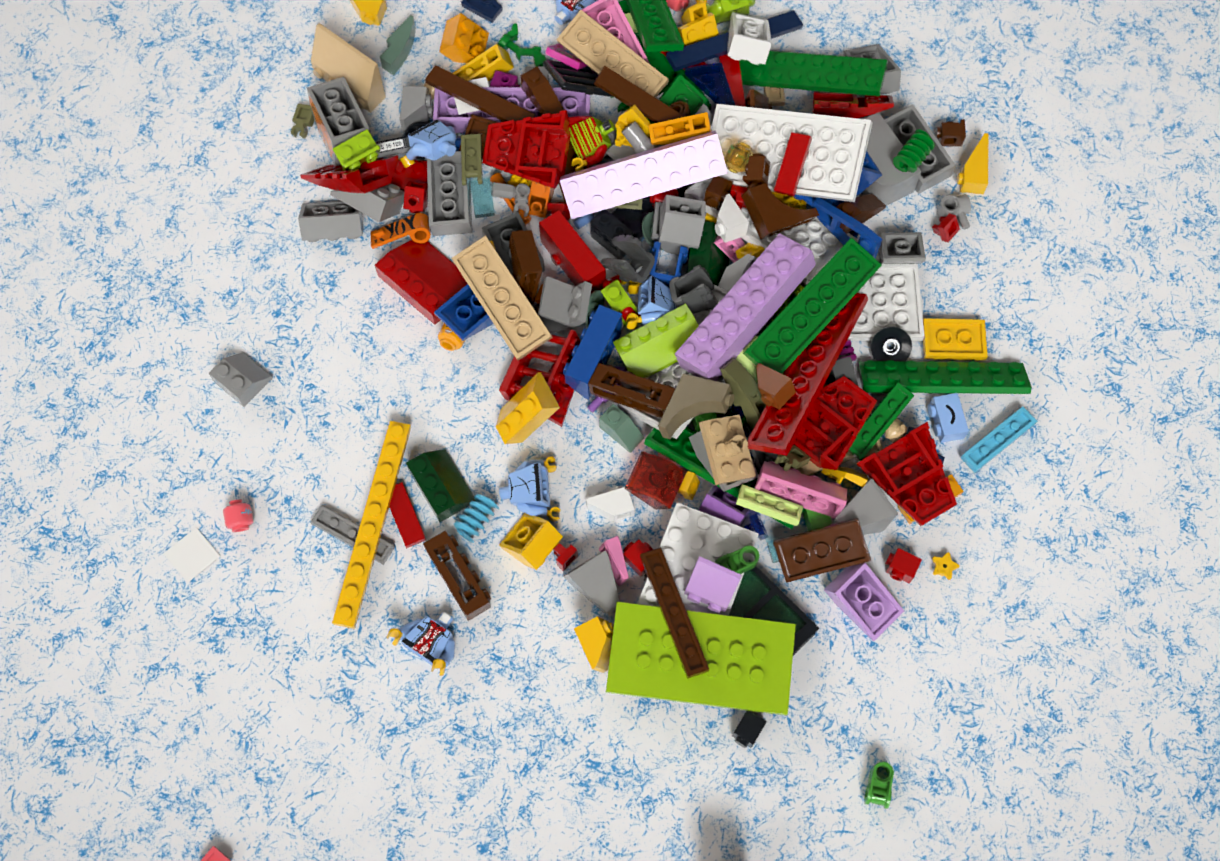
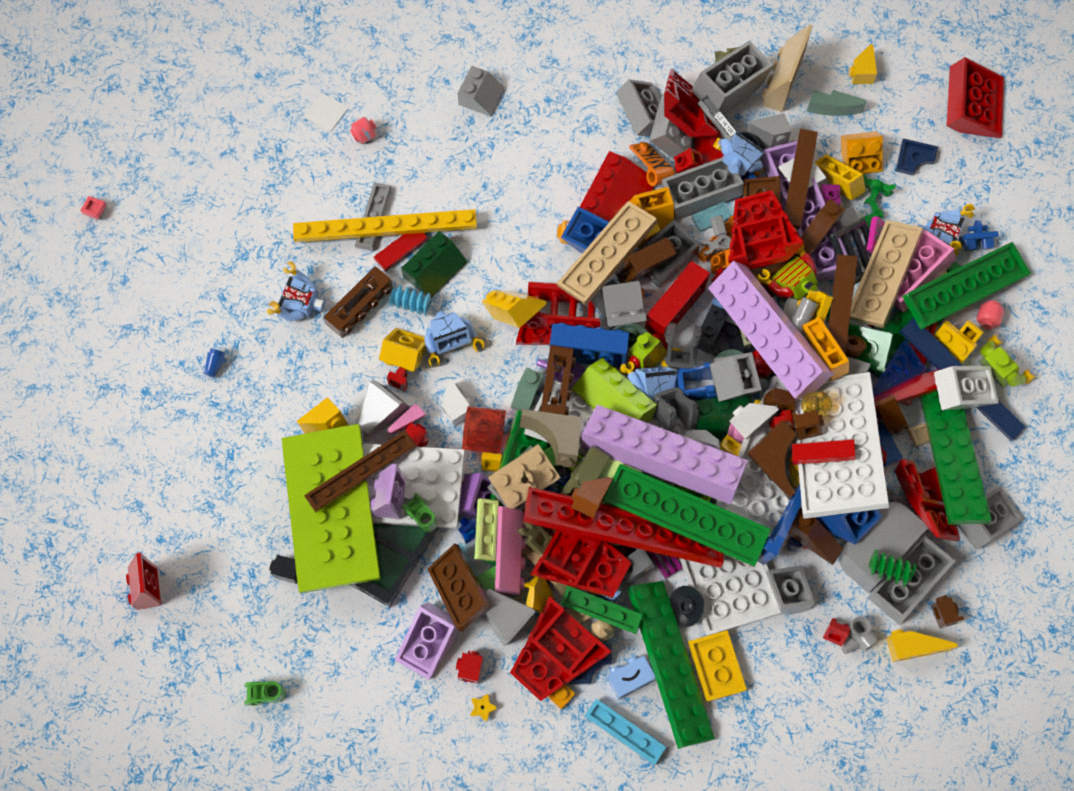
camera: 75 degrees right, 0 degrees up
(357, 151) = (700, 95): lime bracket -> none
(454, 238) = (658, 204): none -> light orange slope
(471, 157) = (735, 189): olive hinge -> none
(475, 756) = (213, 362): none -> blue cone

